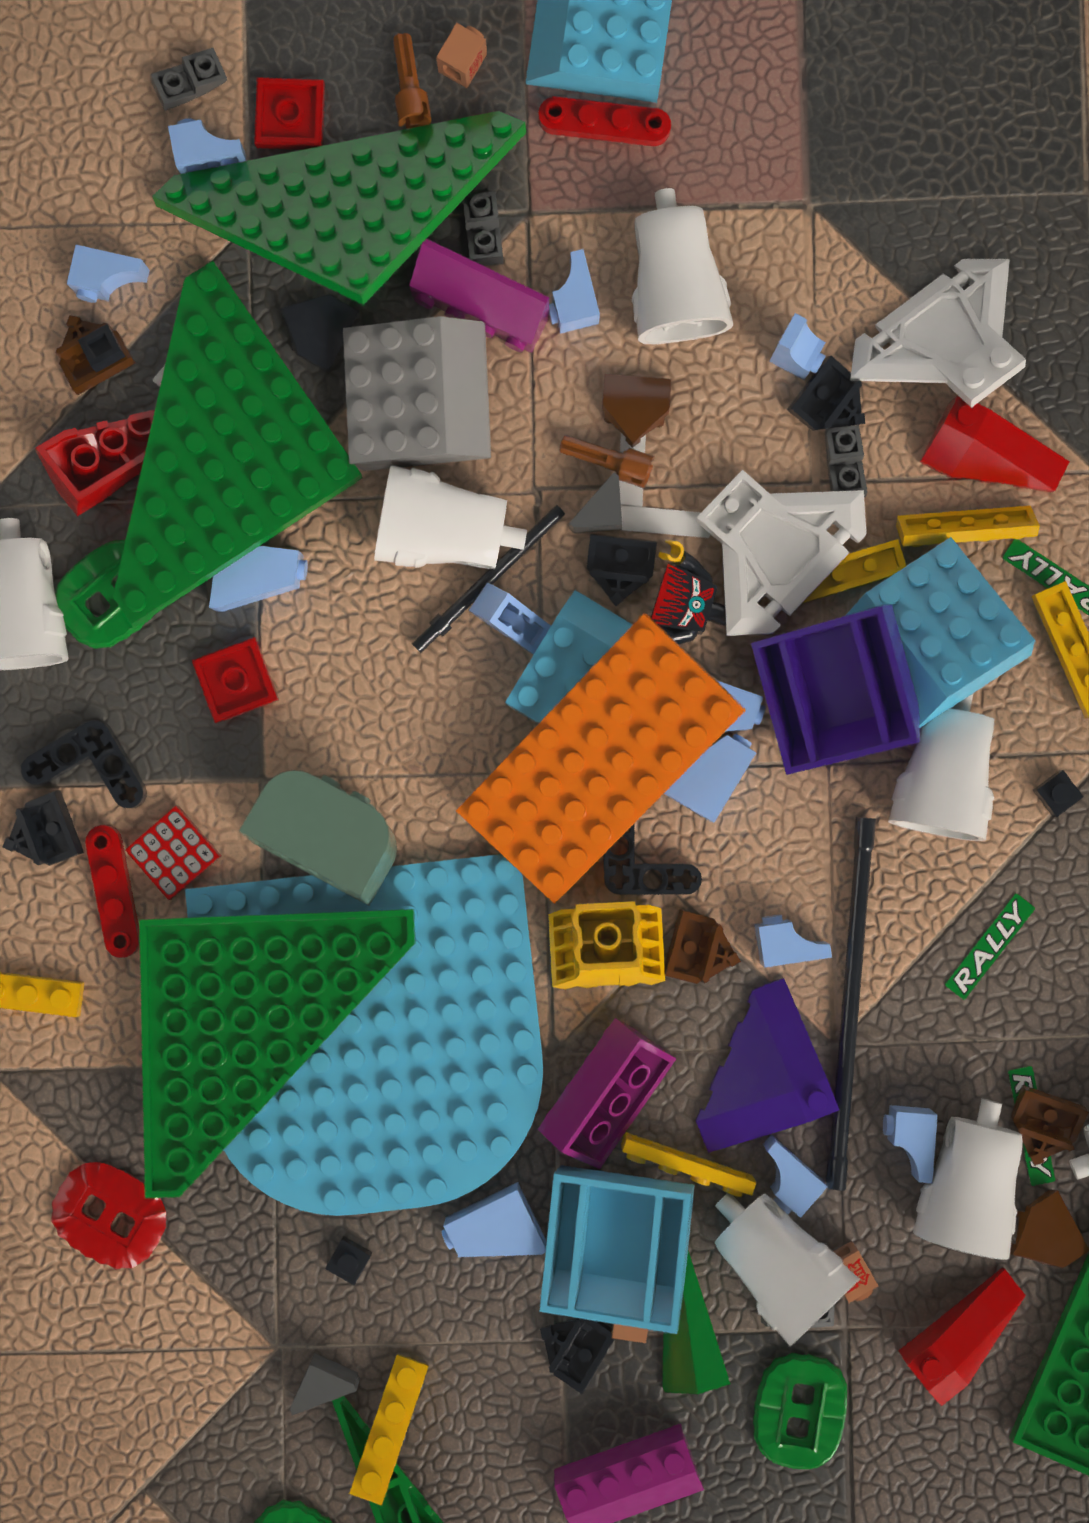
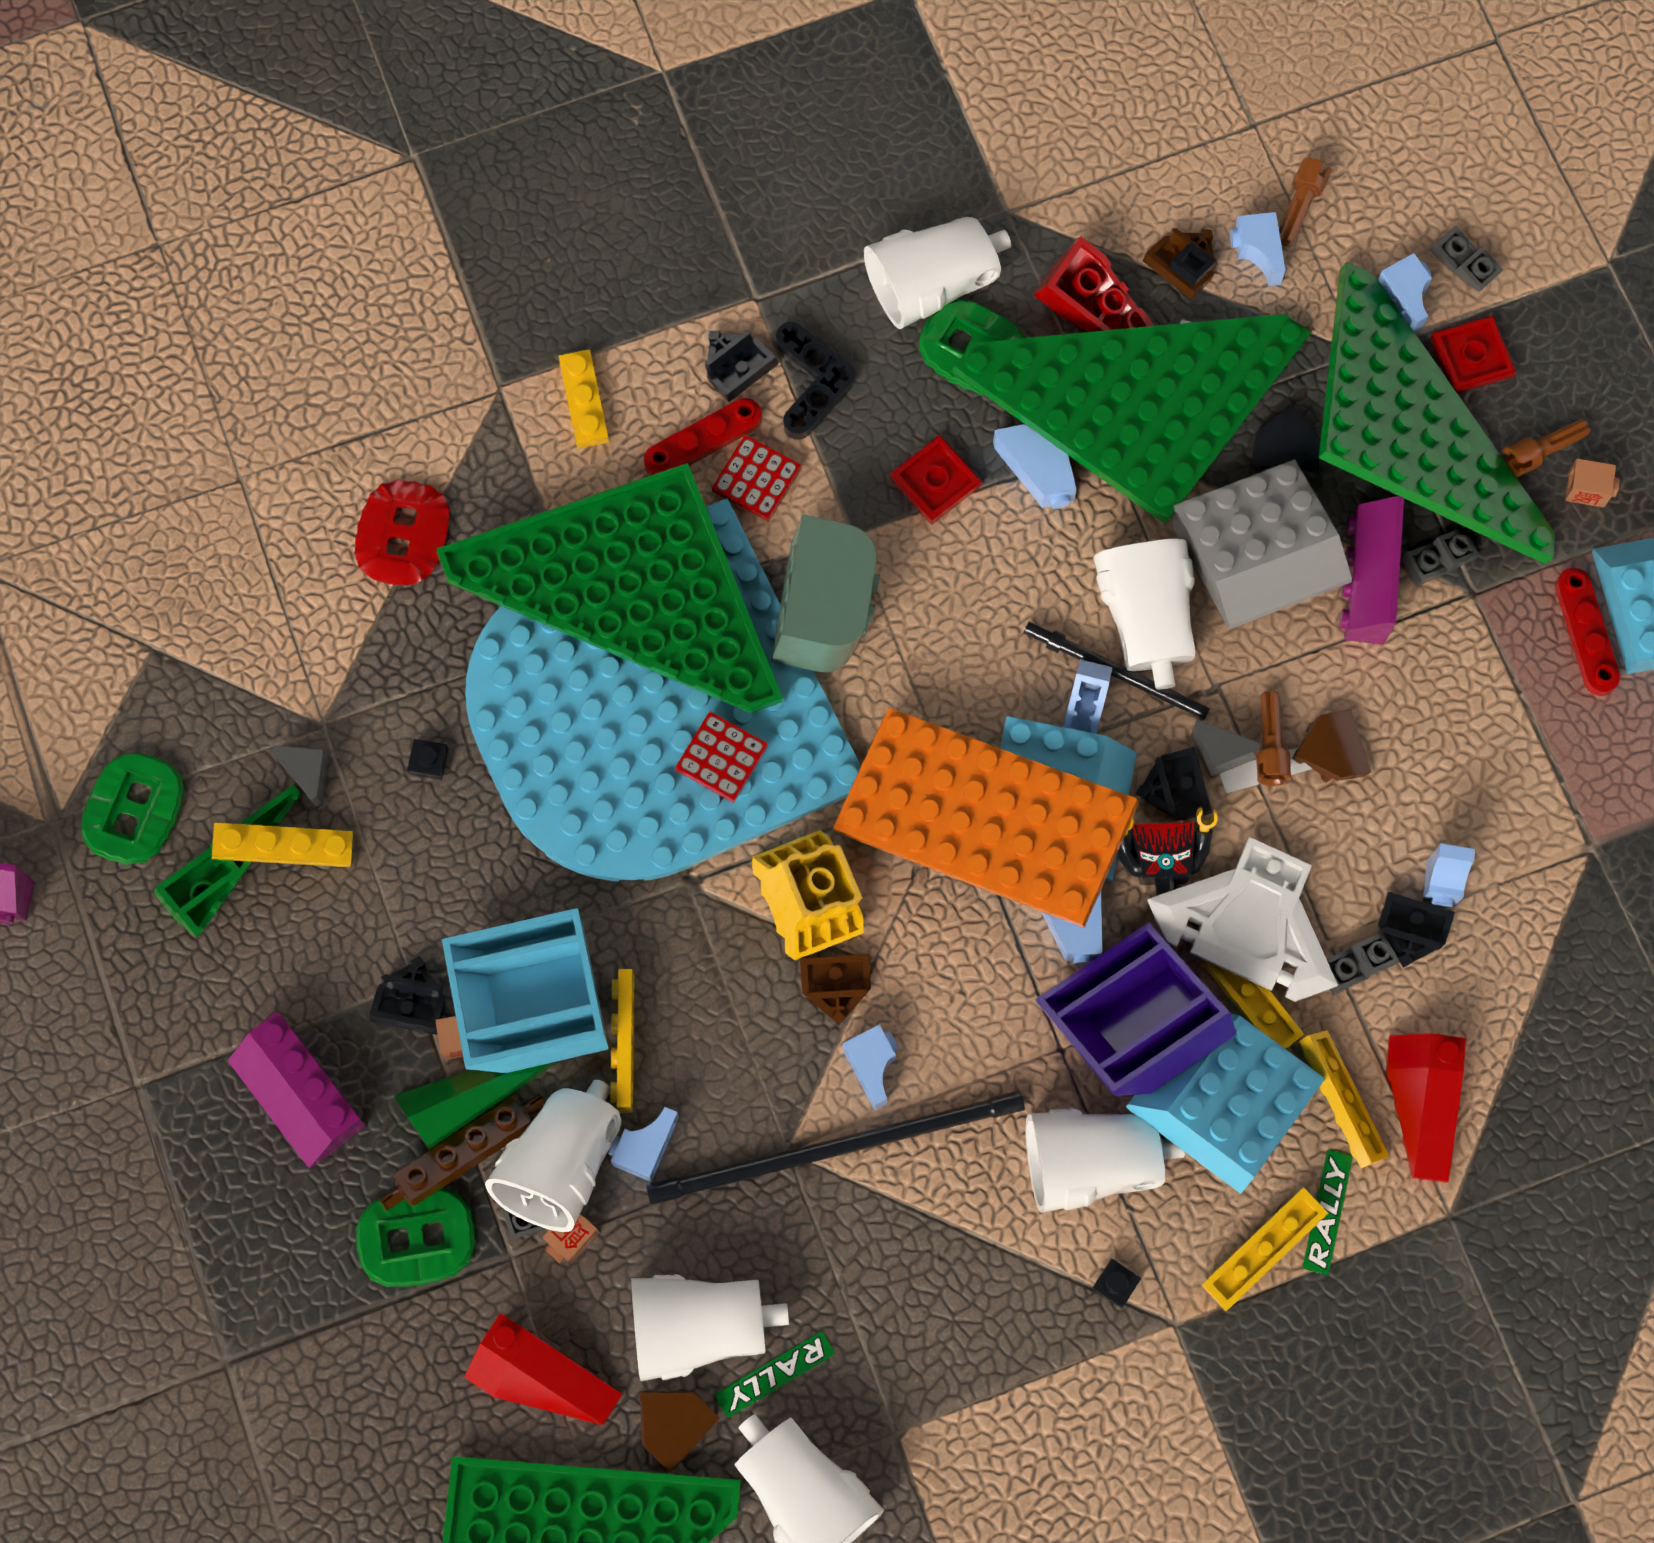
camera: 70 degrees right, 15 degrees down
(55, 200) = (1308, 185): none -> dark orange piece
(449, 986) = (721, 757): none -> tile
(495, 1227) = (506, 879): light blue slope -> none
(575, 302) = (1407, 659): light blue arch -> none
(606, 1094) = (666, 942): magenta slope -> none
(636, 871) = (889, 899): black beam -> none
(662, 521) = (1232, 810): white sticker -> none
(678, 279) = (1467, 740): white torso -> none
(713, 777) = (1007, 934): light blue slope -> none
(740, 1346) = (462, 1151): none -> reddish brown plate
(768, 1077) = (737, 1091): dark purple slope -> none
(916, 1133) = (728, 1252): light blue arch -> none
(946, 335) = (1519, 1012): white plate -> none
(990, 946) = (939, 1270): sticker -> none
(1047, 1123) = (783, 1384): reddish brown slope -> none

